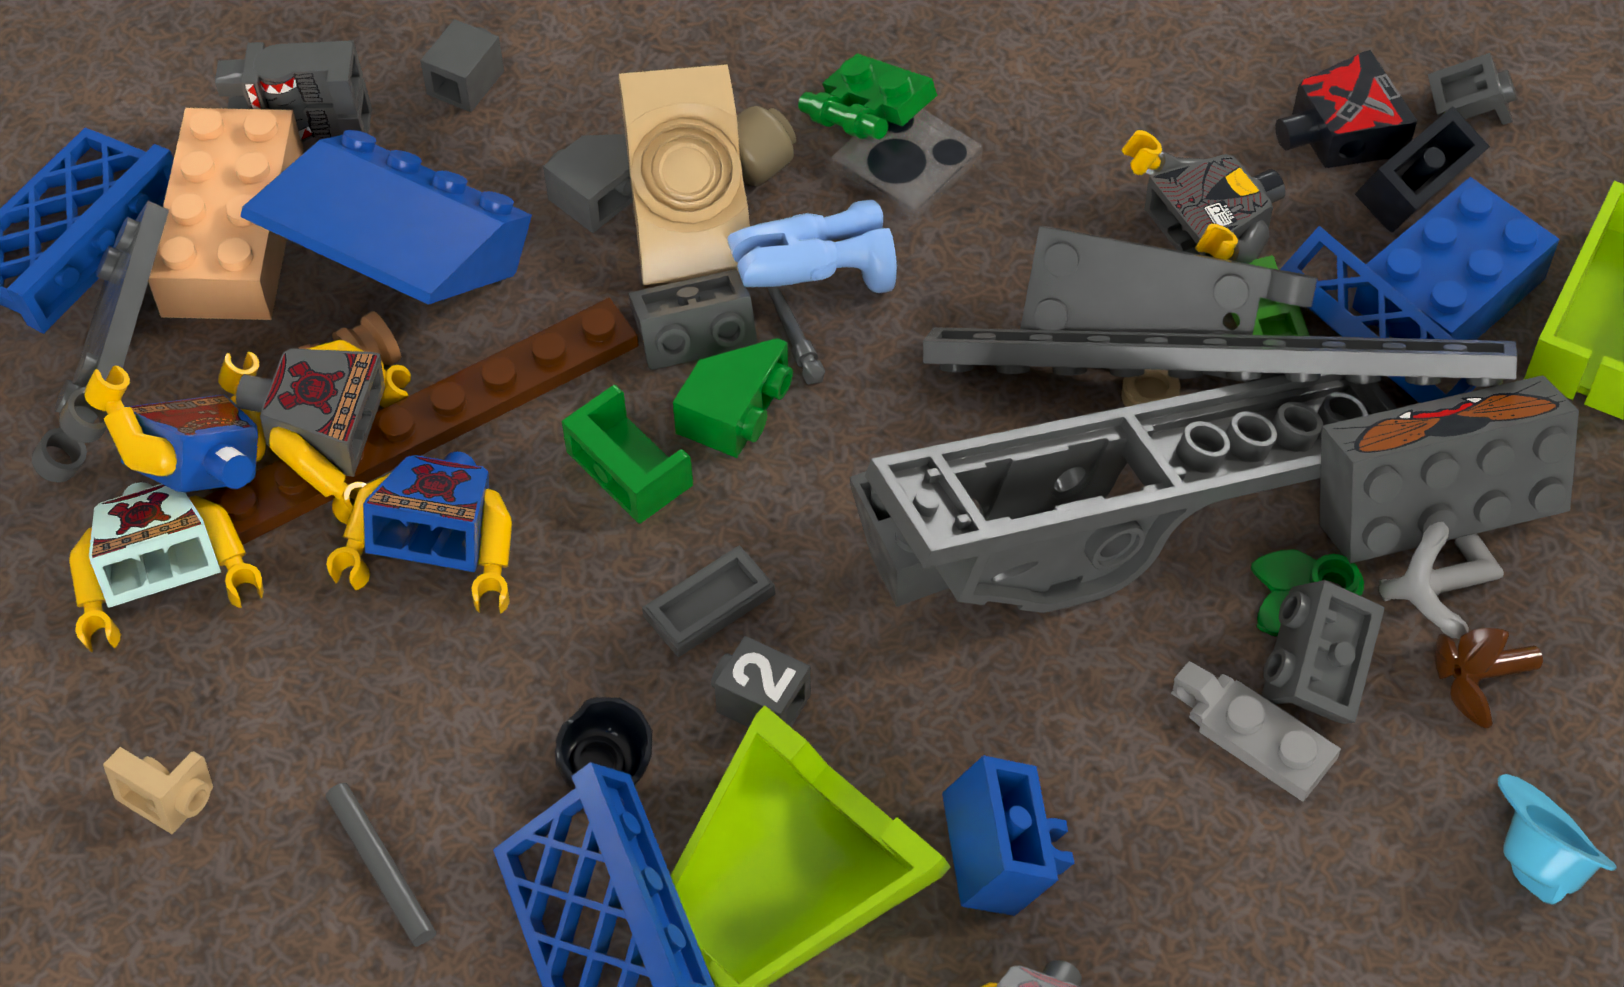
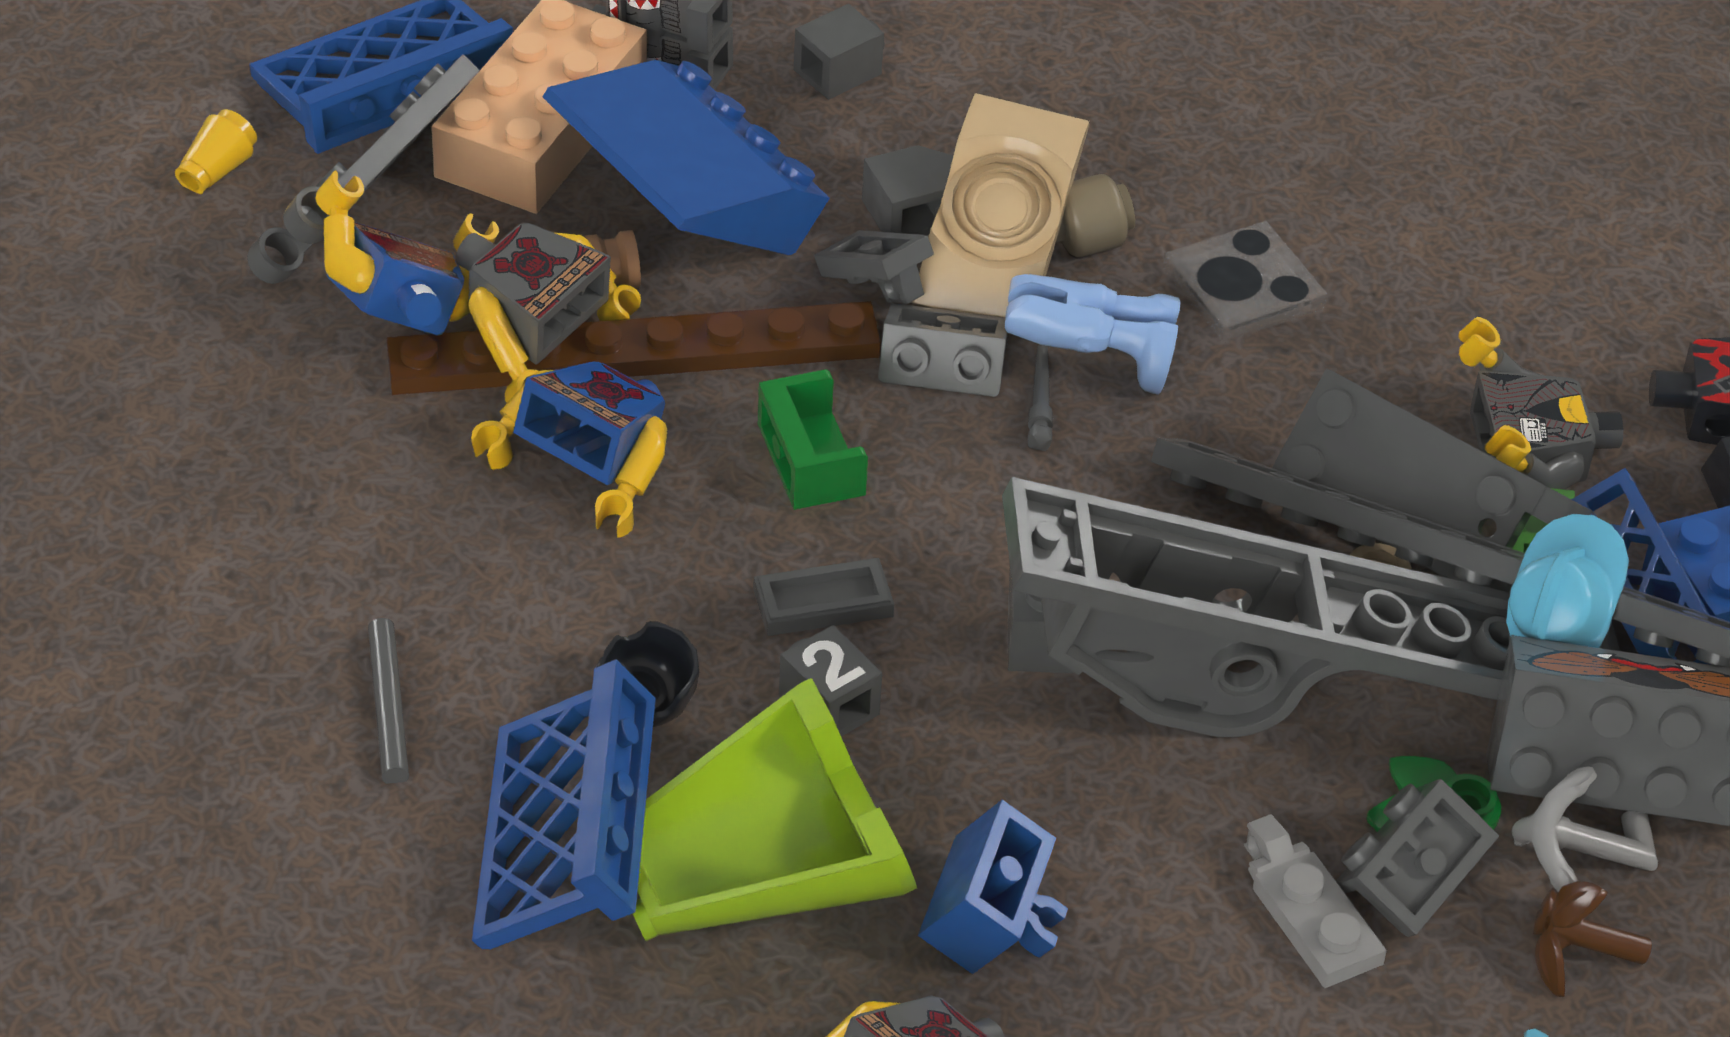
camera: 20 degrees right, 10 degrees down
(148, 545) = (315, 353): torso -> none
(154, 792) = (215, 564): tan bracket -> none
(600, 255) = (879, 257): none -> dark grey hinge
(729, 395) = (943, 424): green slope -> none
(866, 96) = (1231, 209): green plate -> none
(1342, 360) = (1569, 582): none -> medium azure piece

